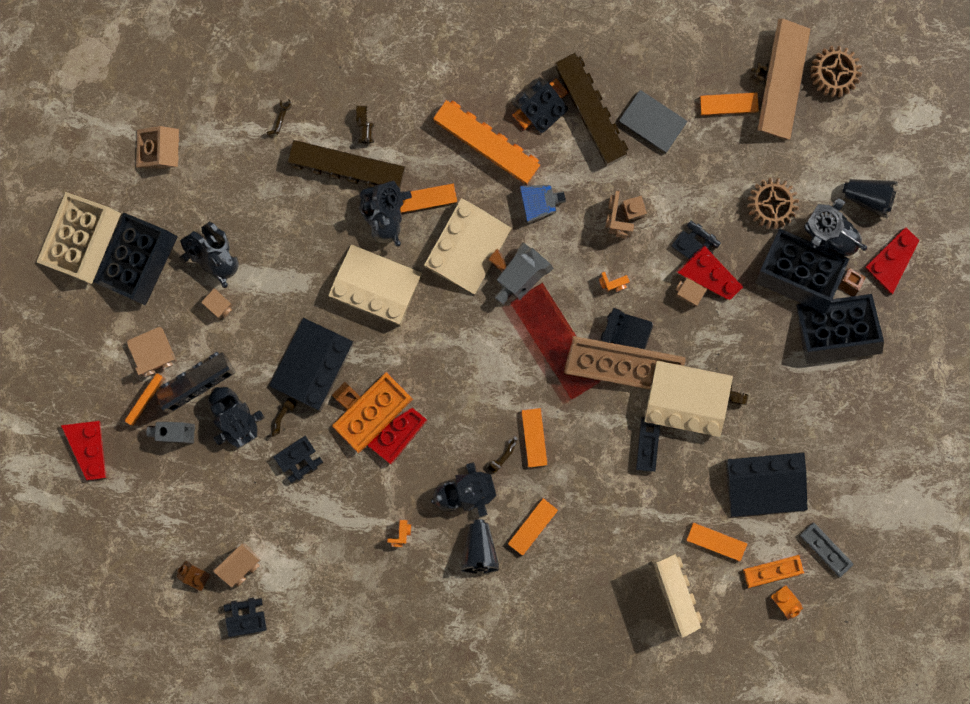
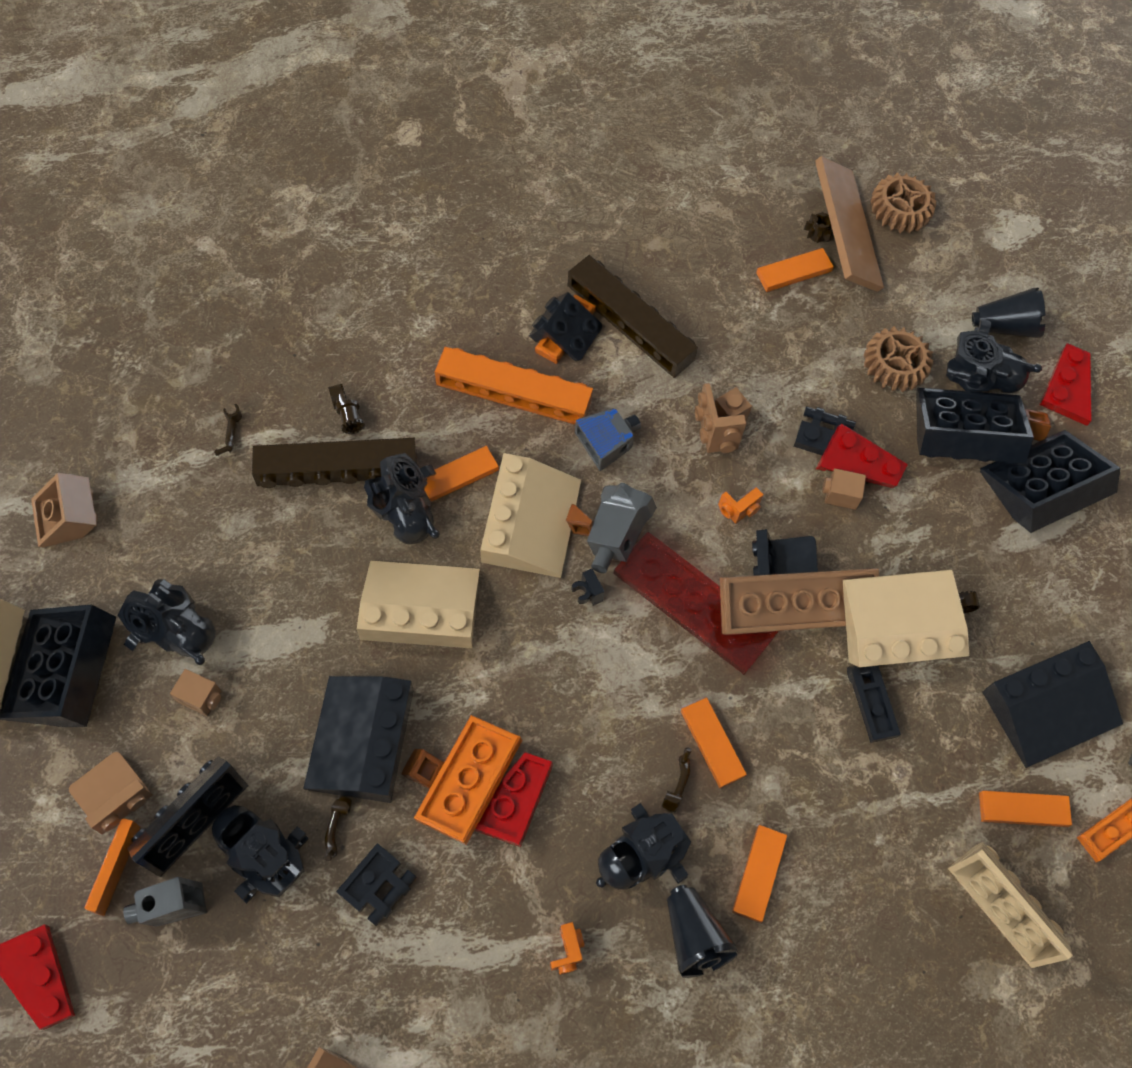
camera: 25 degrees left, 20 degrees down
(490, 310) = (591, 587): none -> black tile
(653, 121) = (712, 311): dark grey tile -> none

